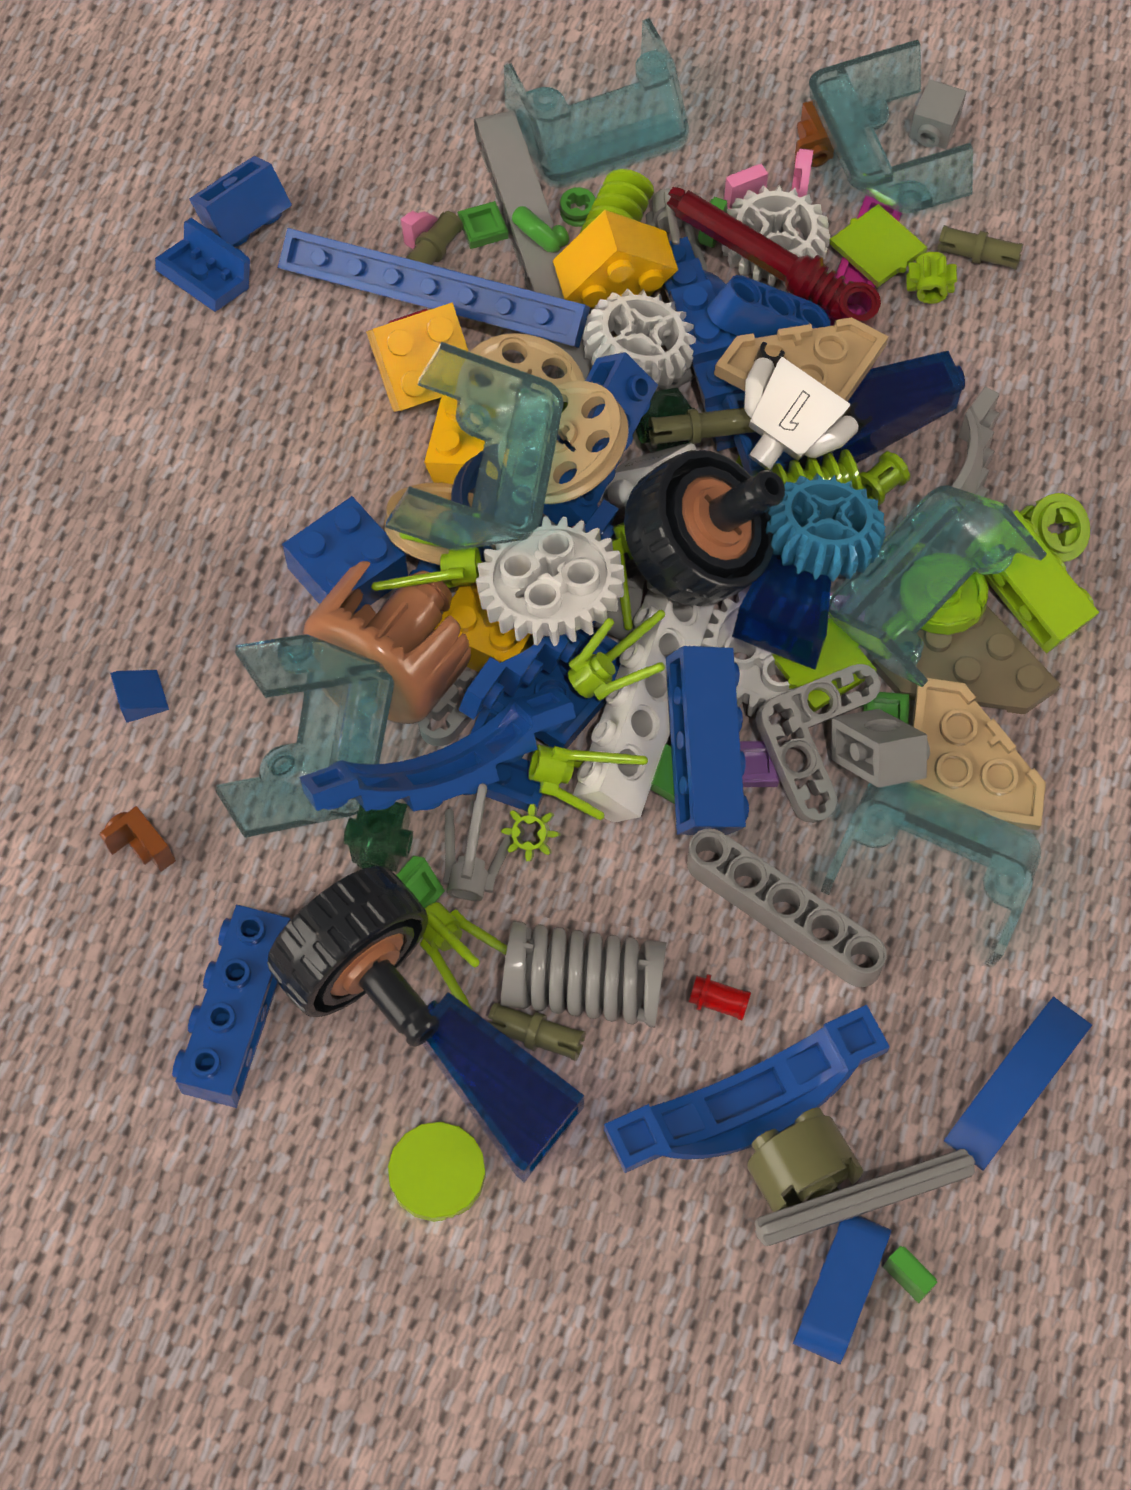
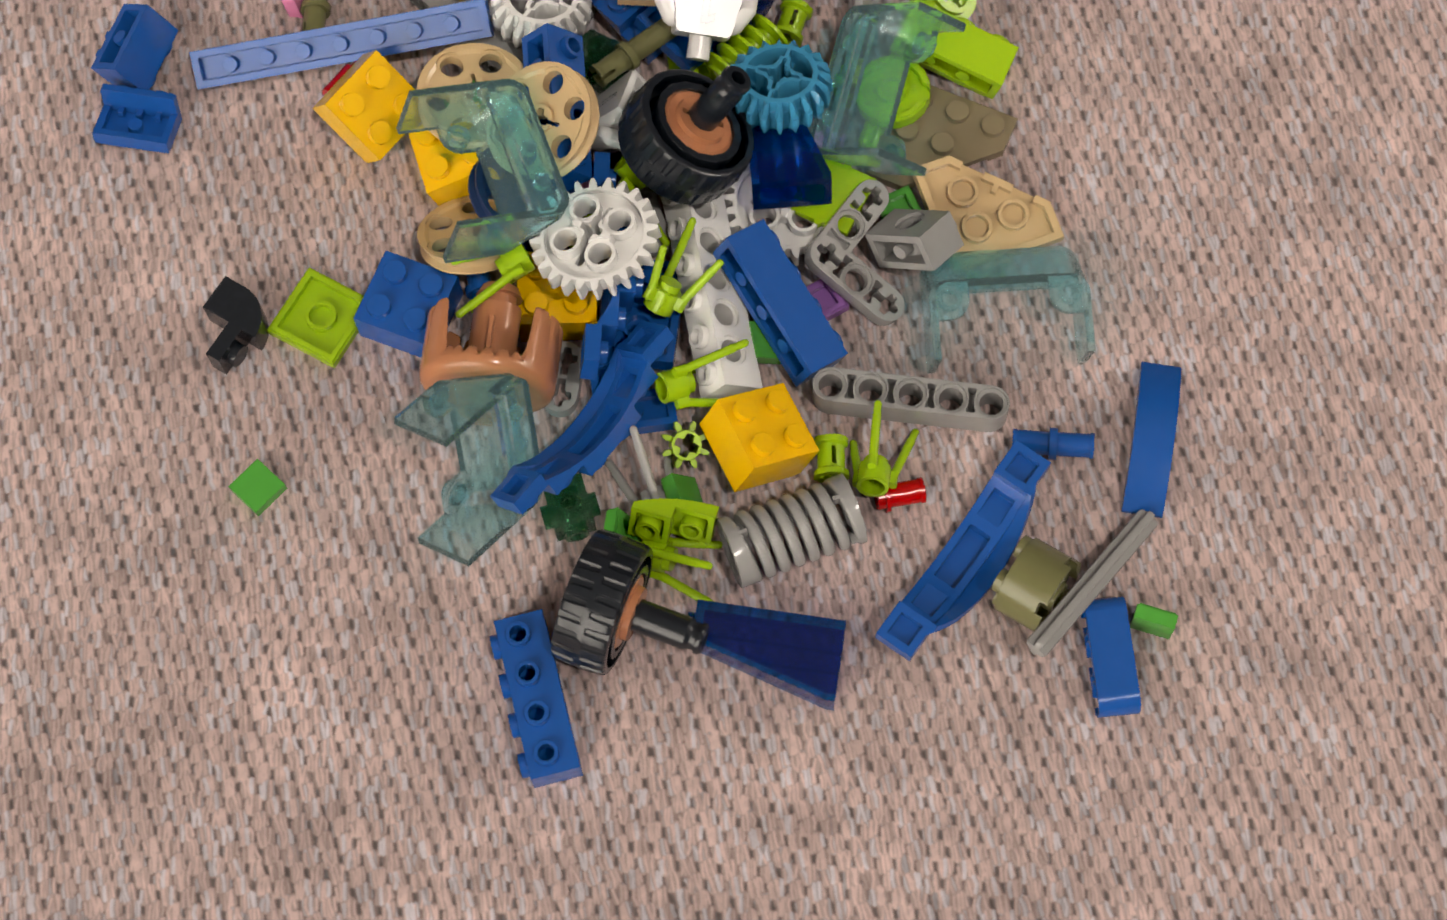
camera: 25 degrees left, 5 degrees up
(100, 658) = (257, 487): none -> bright green tile
(139, 693) = (305, 498): blue slope -> none
(142, 837) = (388, 612): dark orange bracket -> none
(183, 497) = (242, 323): none -> black brick
(255, 529) = (318, 318): none -> lime tile
(436, 1171) = (765, 738): lime tile -> none
(462, 891) = (661, 517): none -> lime slope
(499, 883) = (681, 487): none -> bright green tile
(537, 1031) = (779, 593): olive pin -> none
(606, 862) = (758, 437): none -> yellow brick
(680, 912) = (831, 456): none -> lime bush
(702, 960) = (874, 474): none -> lime plant
(911, 1032) = (1056, 443): none -> blue pin

